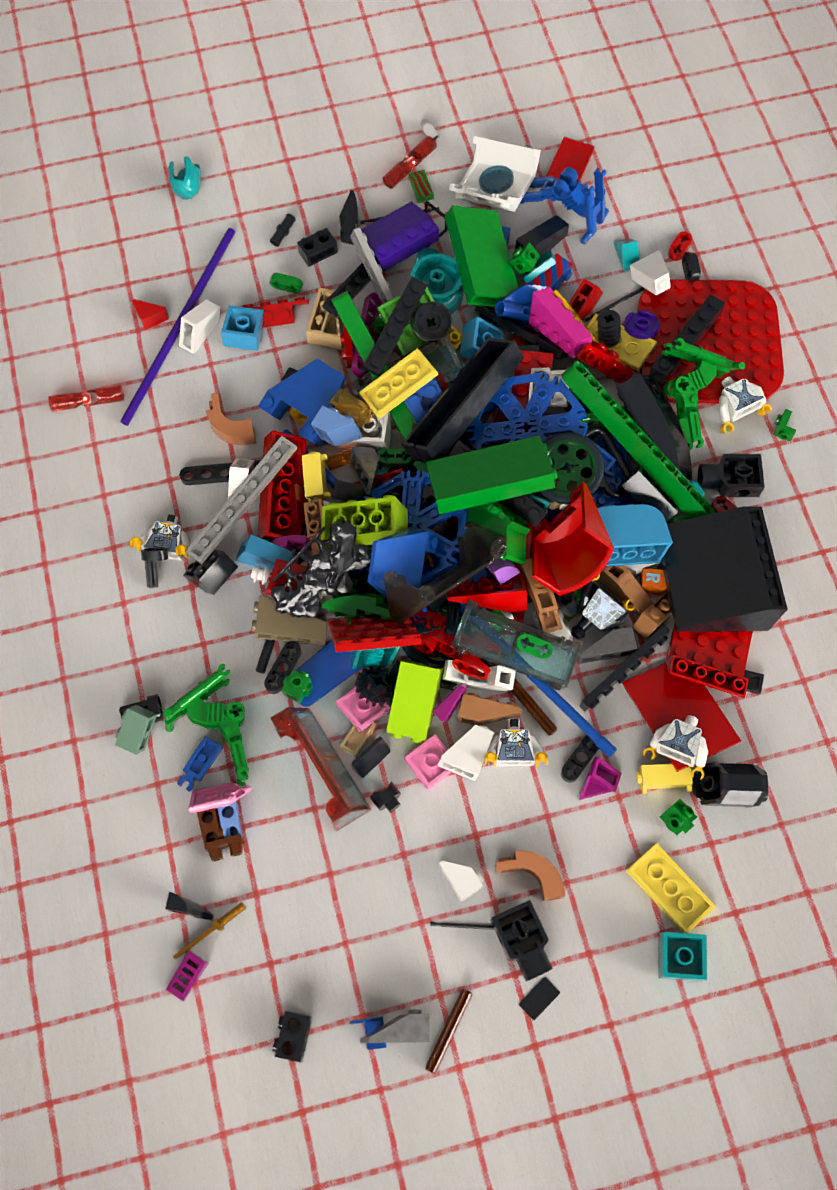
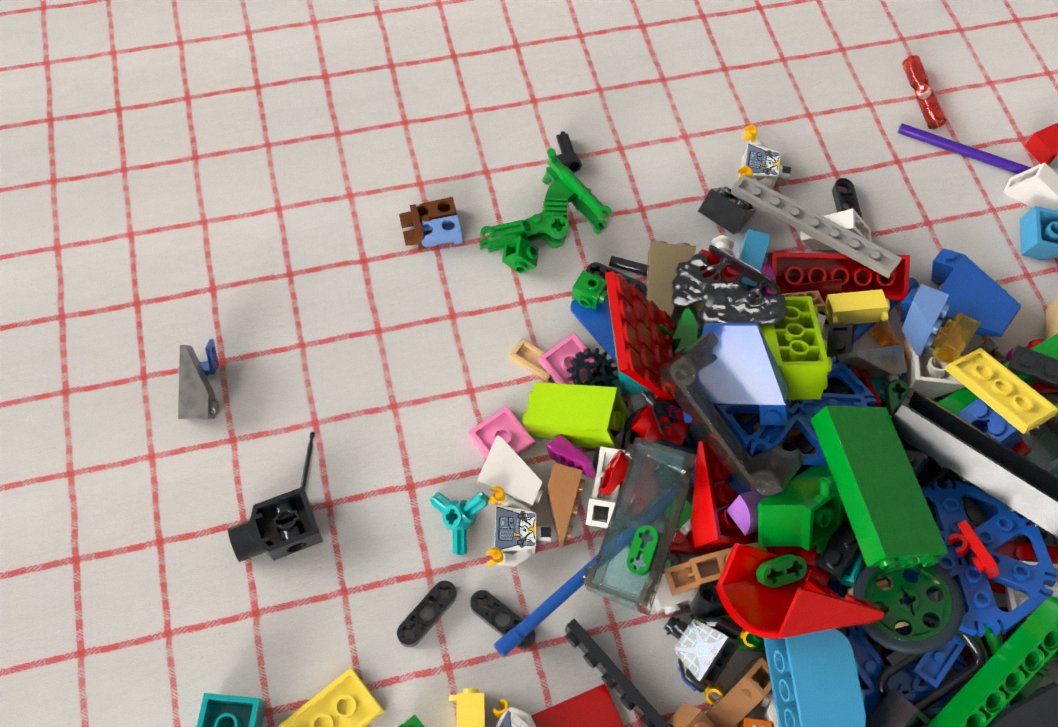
camera: 85 degrees right, 5 degrees down
(135, 729) = (537, 140): sand green brick -> none
(150, 556) = (736, 149): black piece -> none
(180, 972) = (295, 210): magenta slope -> none
(184, 906) = (353, 190): black slope -> none
(200, 762) = (505, 204): blue plate -> none
(216, 796) = (465, 214): bright pink tile -> none
(218, 924) = (333, 224): pearl gold sword -> none
(228, 430) = (906, 235): nougat arch -> none
(258, 746) = (520, 254): none -> green brick
(298, 1037) = (207, 295): black brick -> none
(347, 799) = (496, 317): windscreen -> none
(370, 757) = (507, 370): black slope -> none
(387, 798) = (456, 384): black piece -> none
(448, 1031) = (191, 445): reddish brown axle -> none
(462, 879) = (356, 463): white slope -> none
(504, 790) = (459, 516): none -> teal bush
(533, 708) = (569, 559): reddish brown axle -> none
(537, 416) = (982, 559): none -> red plate
(538, 866) = (357, 559): nougat arch -> none
(539, 998) = (211, 550): black sticker -> none
(545, 549) = (782, 576): none -> green beam
(590, 828) = (445, 603): none -> black beam
(600, 779) = (471, 640): magenta slope -> none
(613, 645) = (656, 671): flat silver slope -> none

